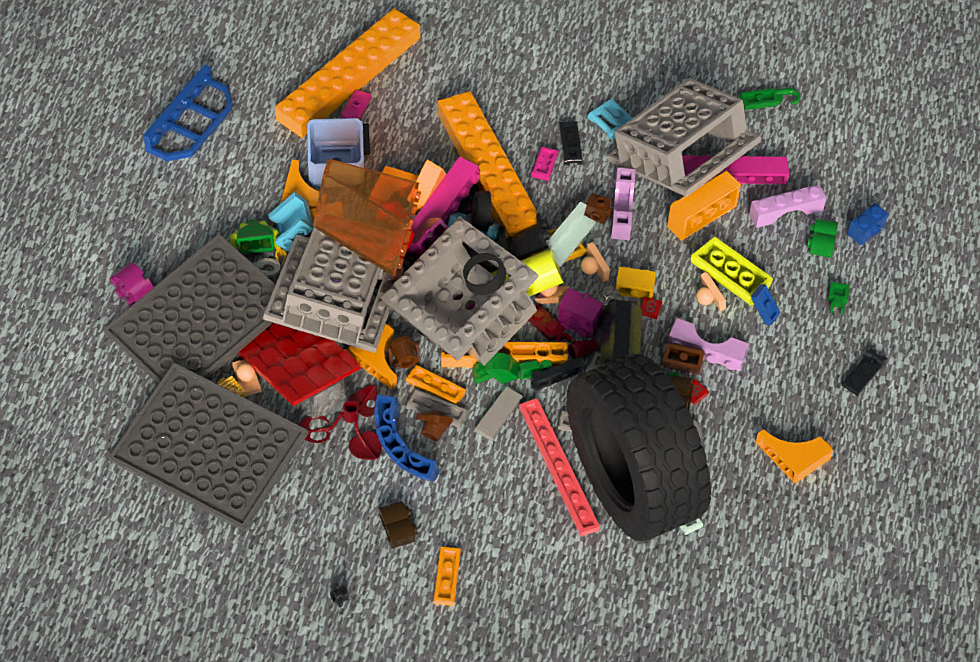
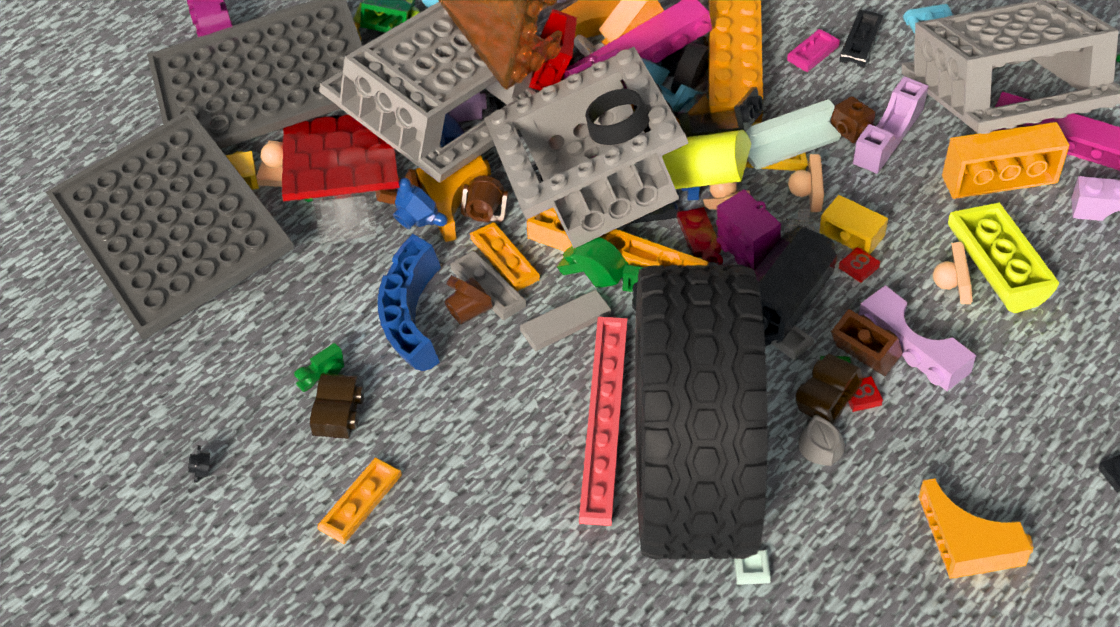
camera: 30 degrees right, 5 degrees down
(365, 445) = (356, 293): dark red plant -> none
(371, 376) = (416, 207): none -> blue rock
(374, 501) = (327, 361): none -> green plate
(765, 304) = (1029, 313): blue plate -> none

